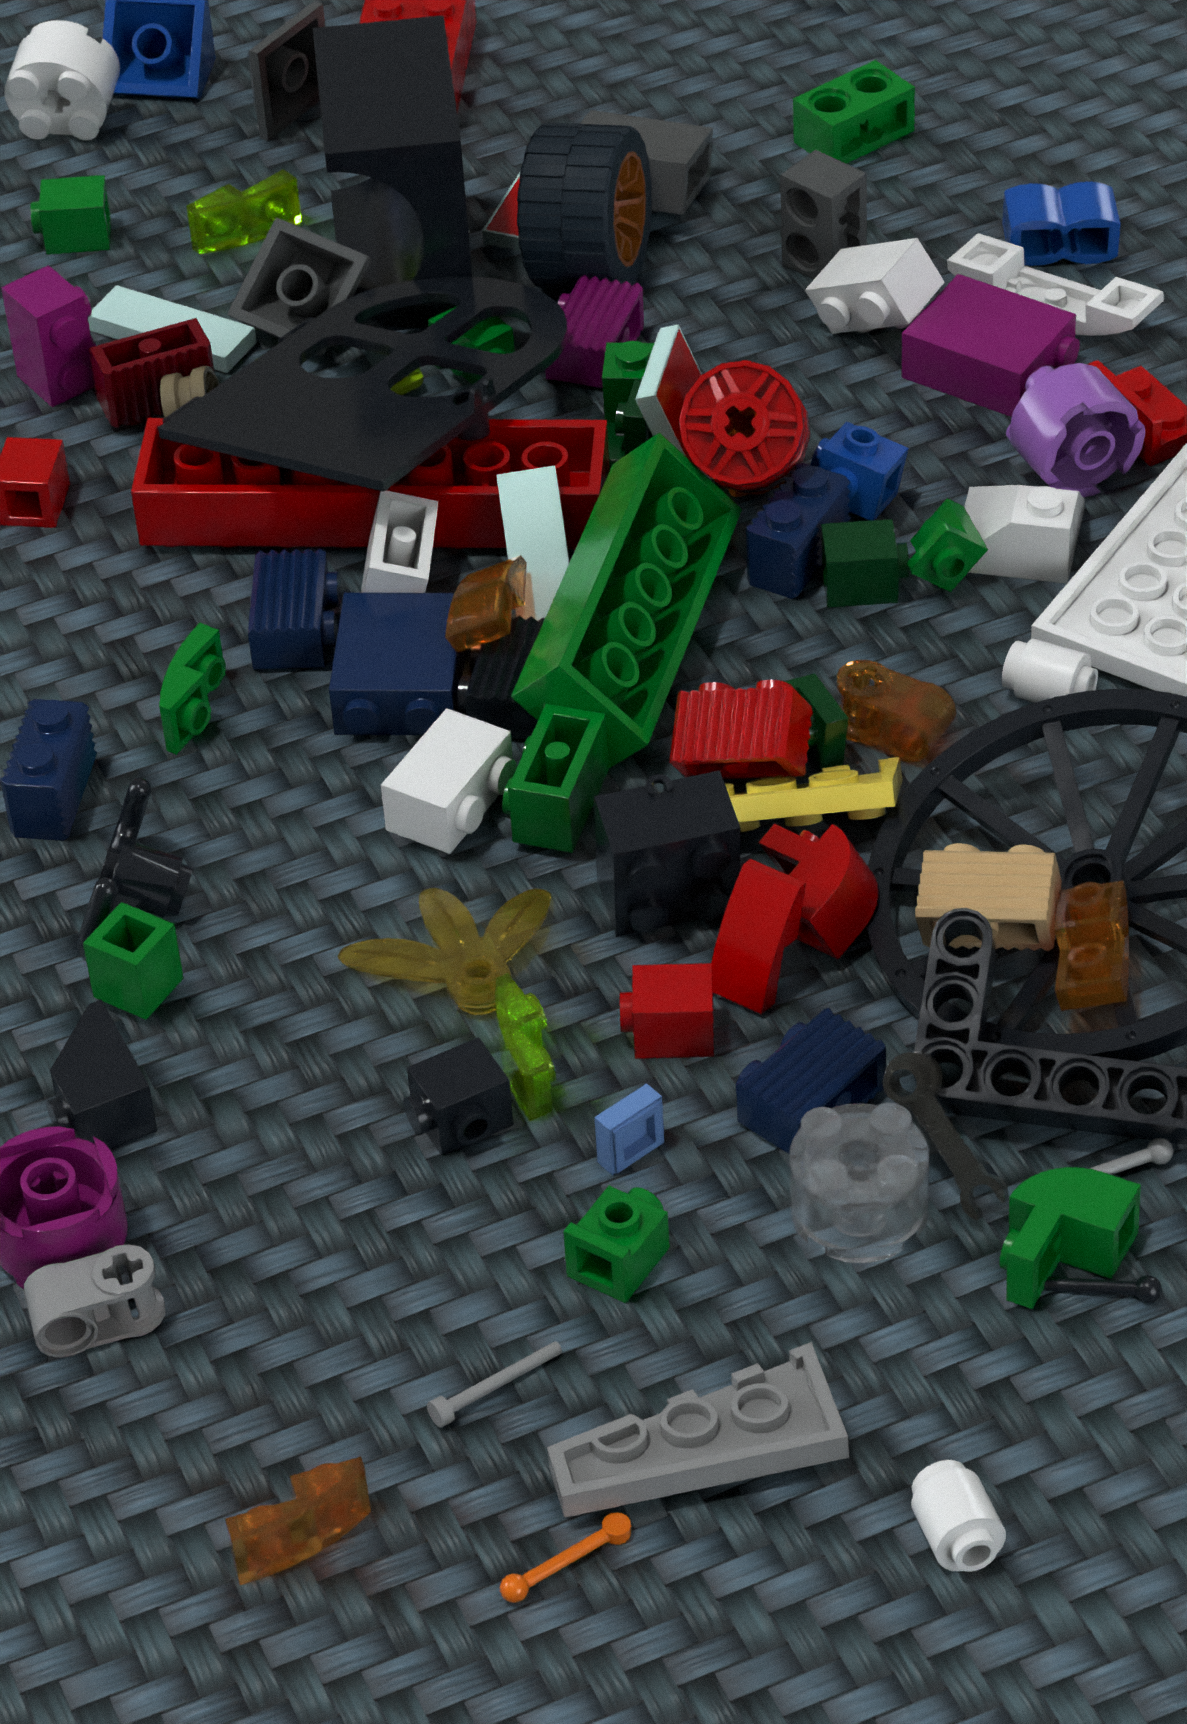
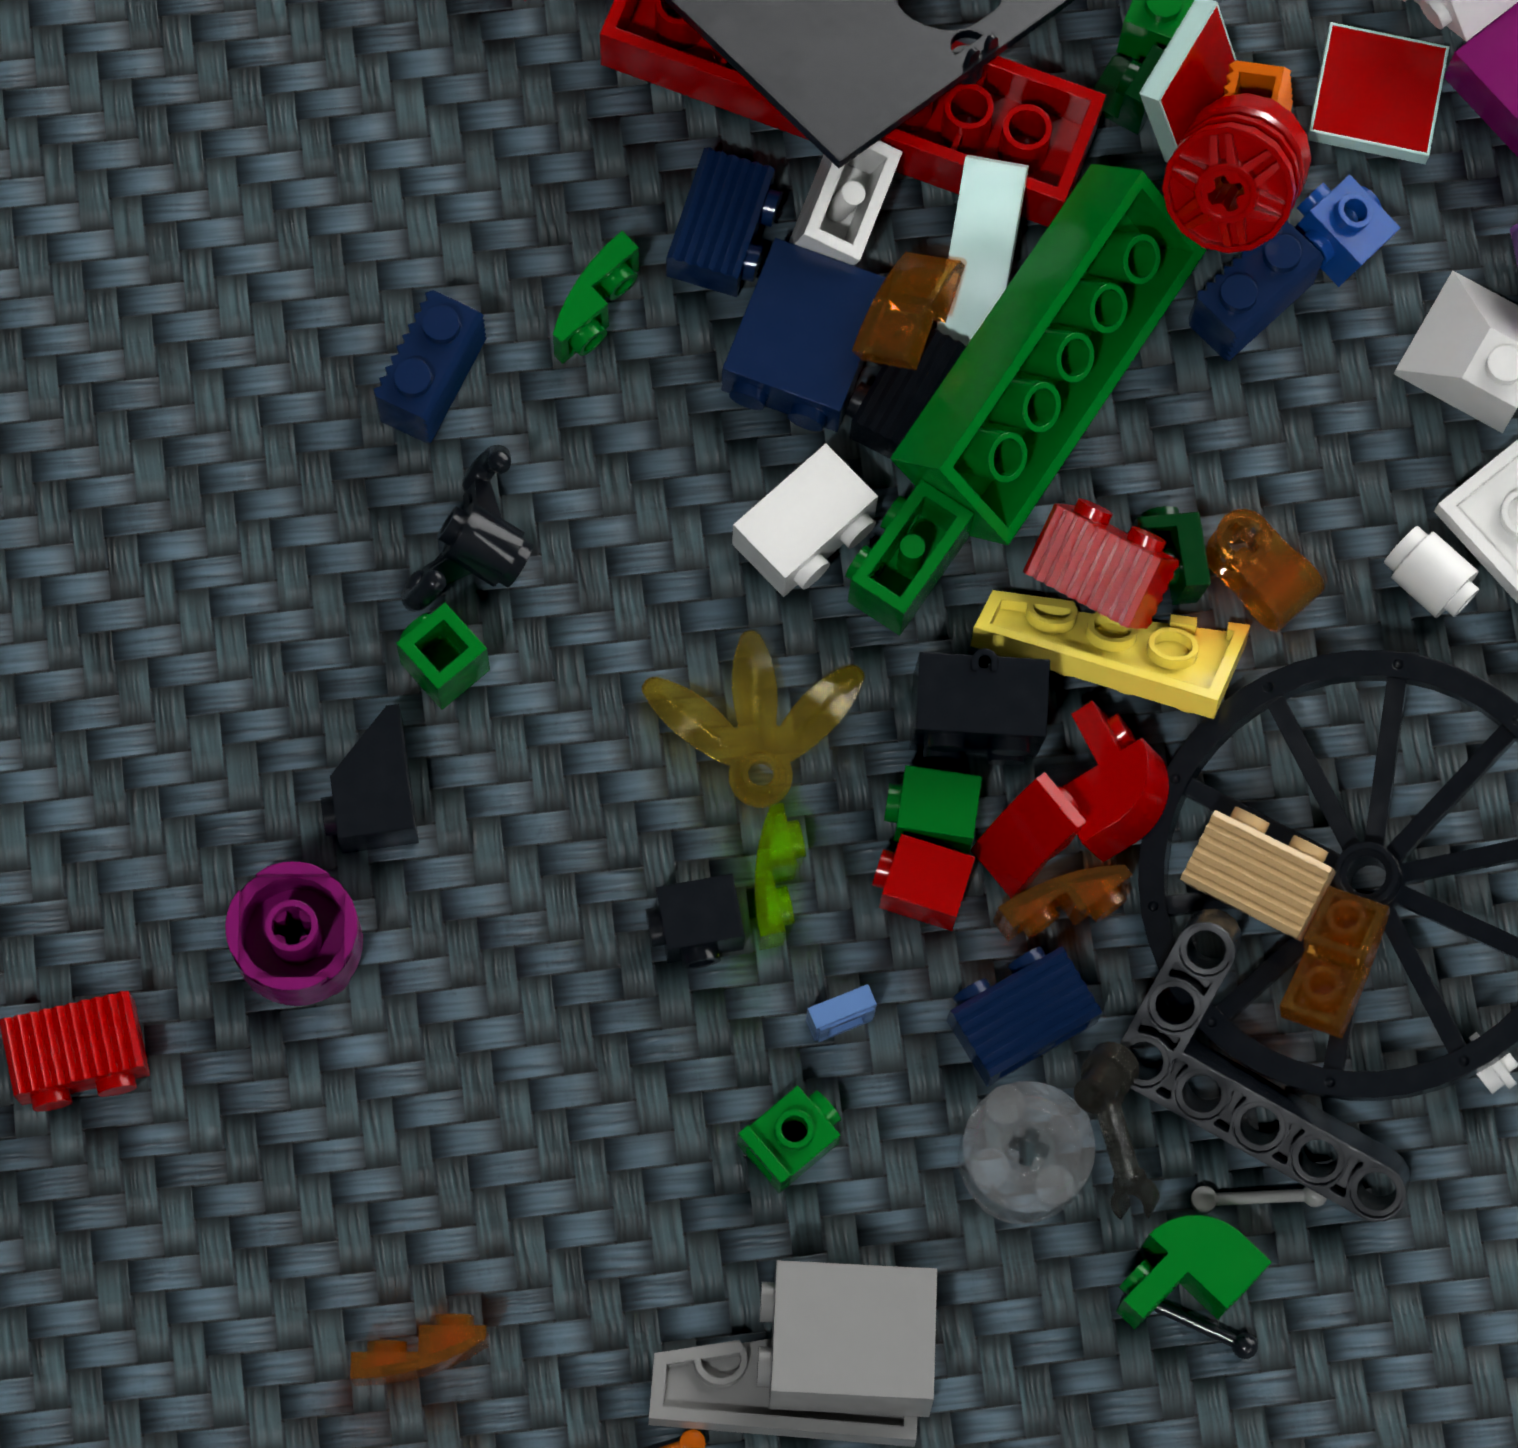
camera: 10 degrees right, 30 degrees up
(87, 1303) = (291, 1045): light grey piece -> none
(443, 1410) = (580, 1265): light grey piece -> none
(654, 939) = (935, 807): none -> green brick
(744, 1362) = (849, 1338): none -> light grey brick
(811, 982) = (1078, 893): none -> clear orange slope
(853, 388) = (1378, 93): none -> red tile
(862, 563) = (1304, 354): dark green brick -> none
(946, 546) = (1395, 362): green bracket -> none

